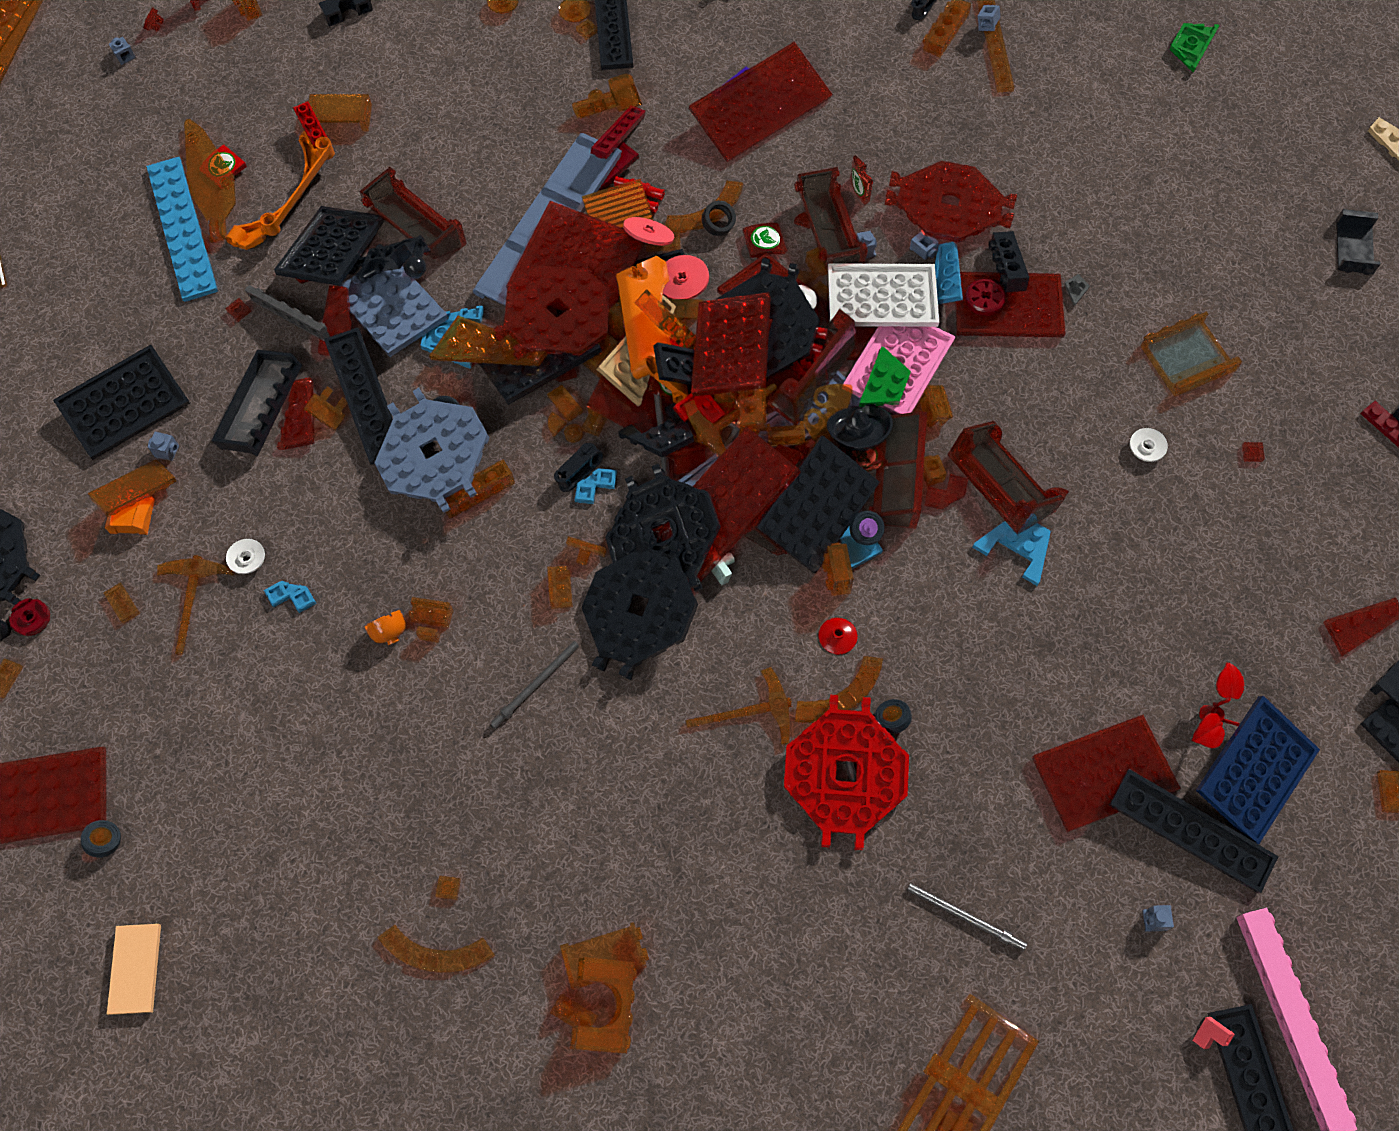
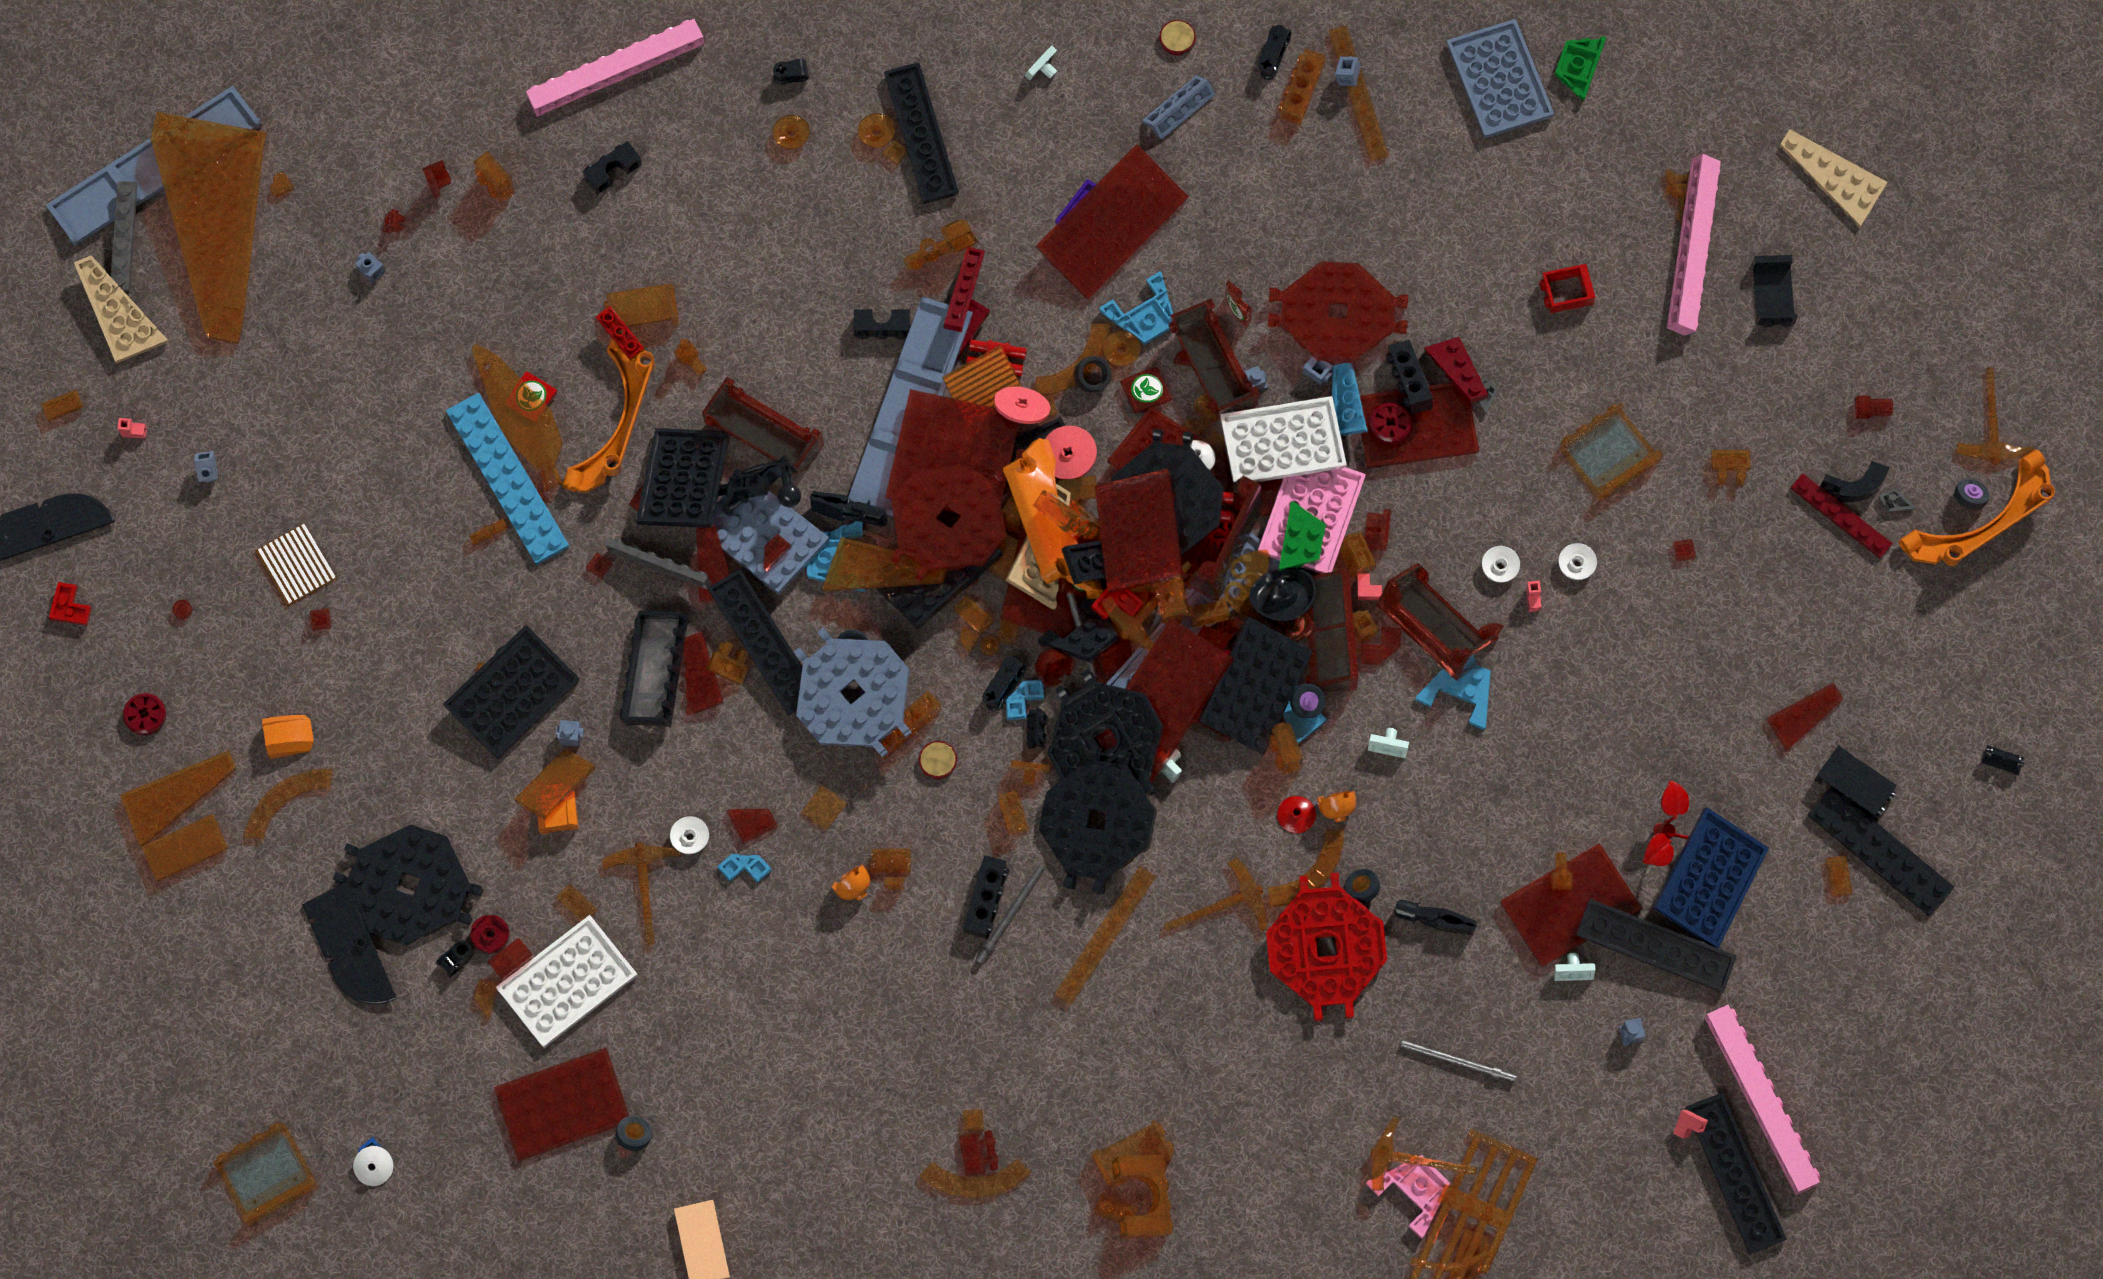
camera: 10 degrees left, 5 degrees up
(39, 645) = (511, 959): none -> clear red panel
(86, 675) = (566, 981): none -> white plate
(149, 267) = (488, 531): none -> clear orange pin
(309, 555) = (751, 822): none -> clear red wing
(366, 152) = (688, 355): none -> clear orange axle
(381, 553) = (824, 807): none -> clear orange piece
(394, 317) = (774, 551): none -> clear red tile
(438, 924) = (972, 1153): none -> clear red plate
(465, 292) = (840, 508): none -> black arm
(500, 527) = (938, 760): none -> pearl gold tile
(523, 635) = (989, 867): none -> black brick
(527, 153) = (897, 326): none -> black arch
(603, 505) = (1036, 719): none -> black hinge
(624, 722) = (1105, 935): none -> clear orange tile
(627, 459) = (1052, 666): none -> clear red cylinder
(749, 197) = (1121, 340): none -> clear orange dish
(776, 184) = (1148, 319): none -> dark azure wing
(838, 28) = (1179, 107): none -> sand blue fence
(873, 1006) = (1385, 1154): none -> clear orange piece
(880, 633) = (1337, 805): none -> orange cylinder
(906, 1046) = (1422, 1186): none -> bright pink wing
(939, 439) = (1365, 590): none -> coral piece
(940, 583) = (1388, 744): none -> light aqua tile
(959, 388) = (1378, 530): none -> clear red panel
(963, 761) = (1435, 917): none -> black arm
(1055, 261) = (1458, 367): none -> dark red wing
(1075, 429) = (1504, 556): none -> white dish
(1101, 467) = (1533, 593): none -> coral piece
(1101, 742) = (1561, 878): none -> clear orange axle
(1102, 841) = (1574, 970): none -> light aqua tile
(1121, 44) = (1500, 78): none -> sand blue plate
(1174, 200) = (1570, 272): none -> red window
(1275, 150) = (1677, 190): none -> clear orange piece
(1284, 194) = (1693, 245): none -> bright pink brick
(1307, 379) = (1730, 461): none -> clear orange plate

